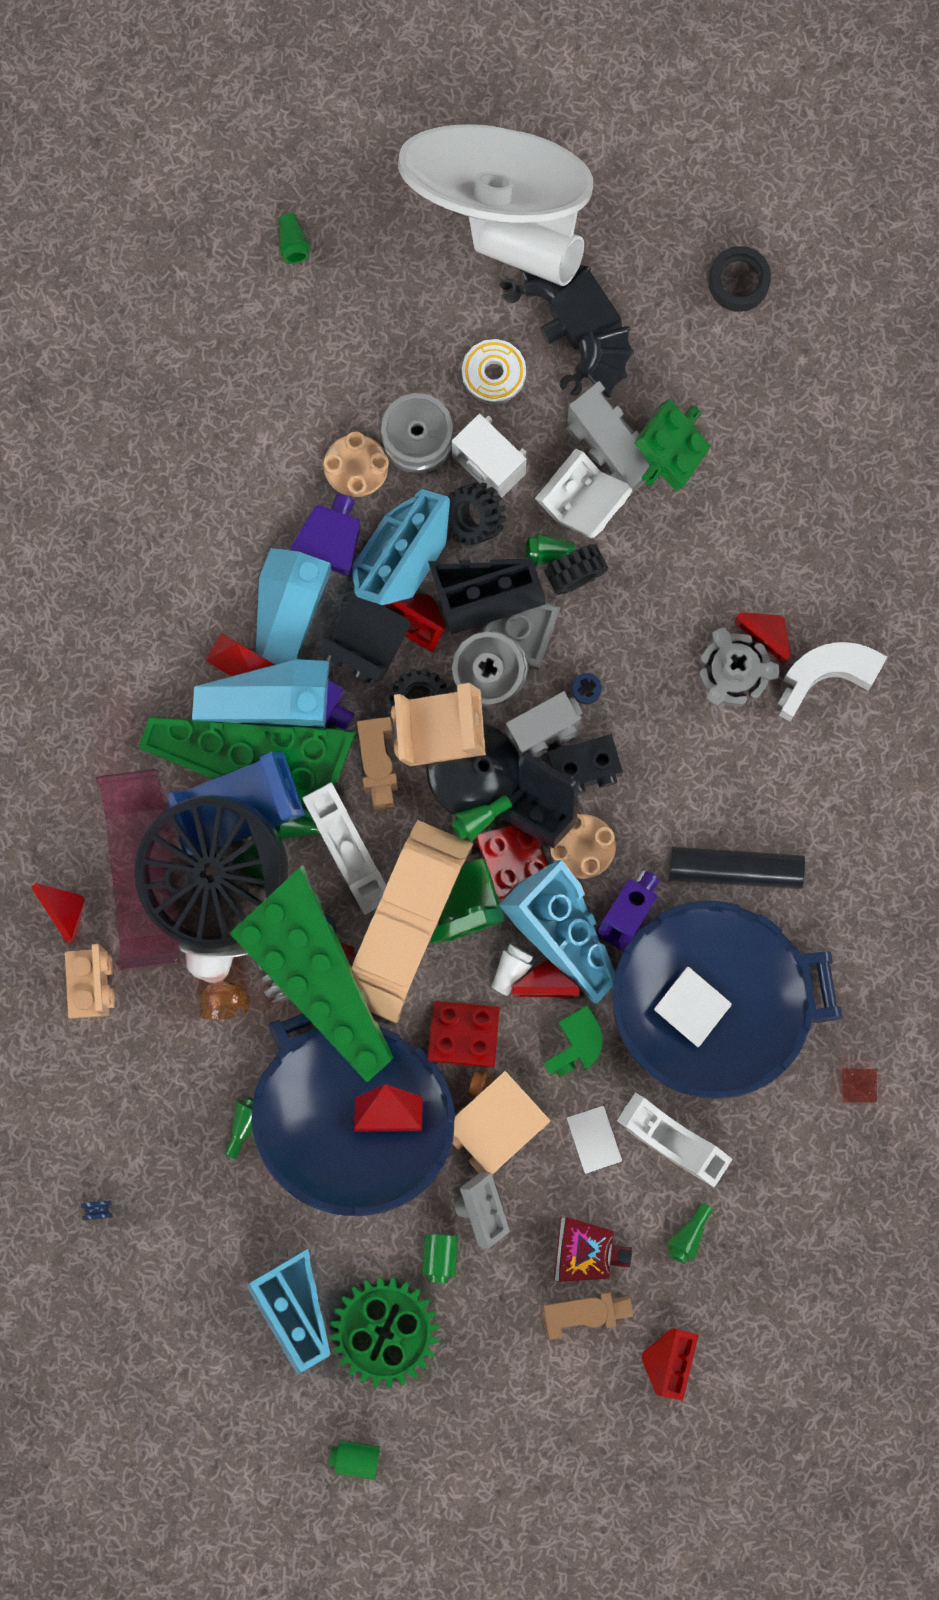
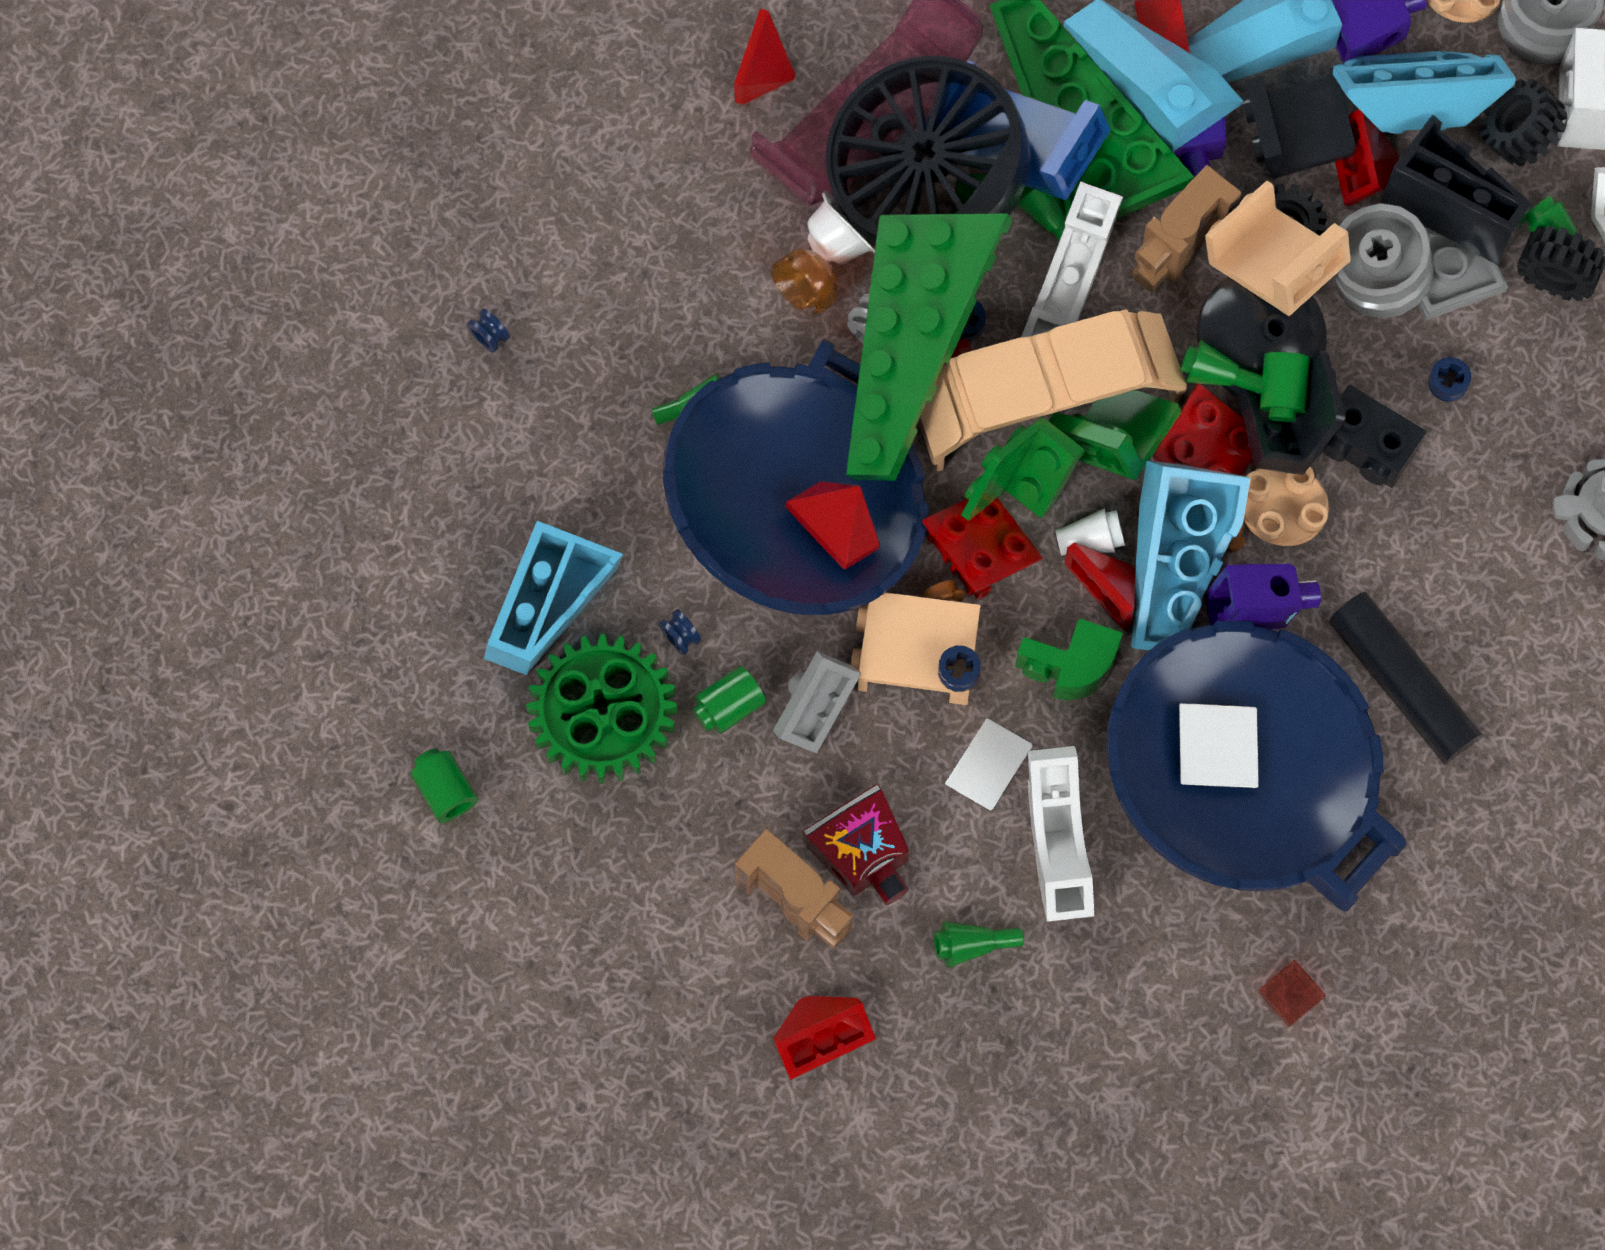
camera: 50 degrees right, 10 degrees down
(88, 984) = (713, 143): light nougat bracket -> none
(375, 1250) = (680, 632): none -> dark blue bush
(448, 972) = (1028, 467): none -> green bracket
(522, 791) = (1284, 385): none -> green brick
(544, 1117) = (950, 658): none -> dark blue bush
(545, 725) = (1375, 356): light grey brick -> none

